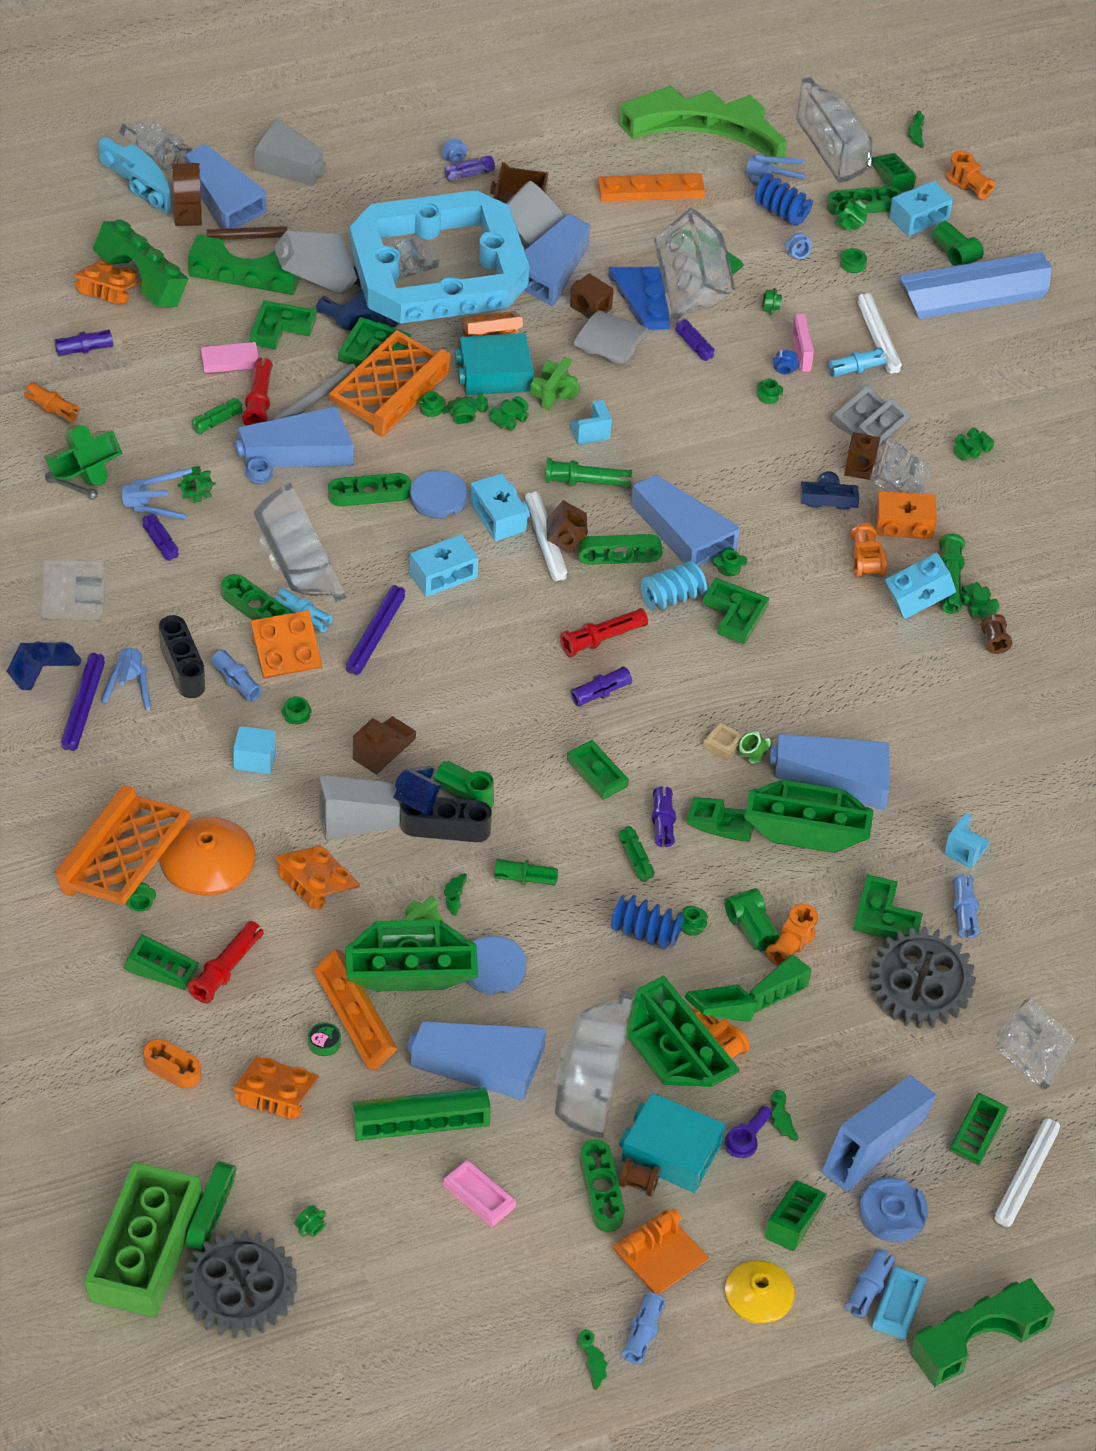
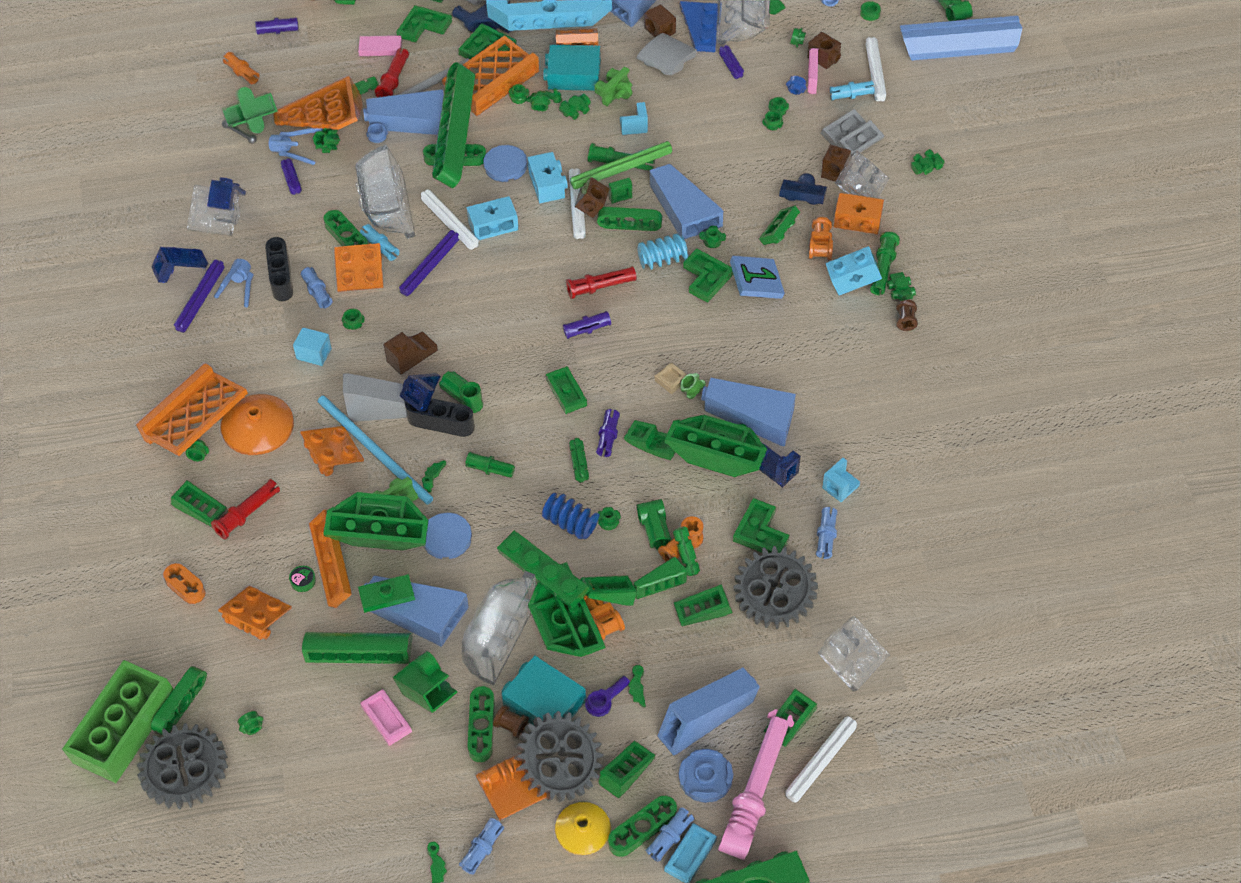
camera: 15 degrees right, 5 degrees up
(88, 566) = (222, 193): none -> clear blue bracket
(185, 444) = (325, 108): none -> orange slope
(365, 450) = (453, 125): none -> green beam
(365, 865) = (373, 447): none -> medium azure piece
(386, 571) = (449, 219): none -> white axle
(446, 1040) = (386, 593): none -> green plate
(523, 1142) = (425, 683): none -> green piece
(594, 481) = (622, 164): none -> bright green axle
(599, 514) = (620, 190): none -> green tile
(649, 990) = (546, 570): none -> green plate
(706, 1178) = (560, 781): none -> dark grey gear
(767, 409) = (773, 120): none -> green plate
(800, 606) = (757, 277): none -> medium blue tile
(803, 944) = (686, 550): none -> green axle
(811, 539) = (783, 220): none -> green plate
(816, 312) = (828, 49): none -> reddish brown brick
(829, 1292) = (641, 837): none -> green beam
(842, 997) = (706, 614): none -> green slope
(892, 836) = (780, 468): none -> clear blue bracket
(957, 1236) = (749, 804): none -> bright pink piece

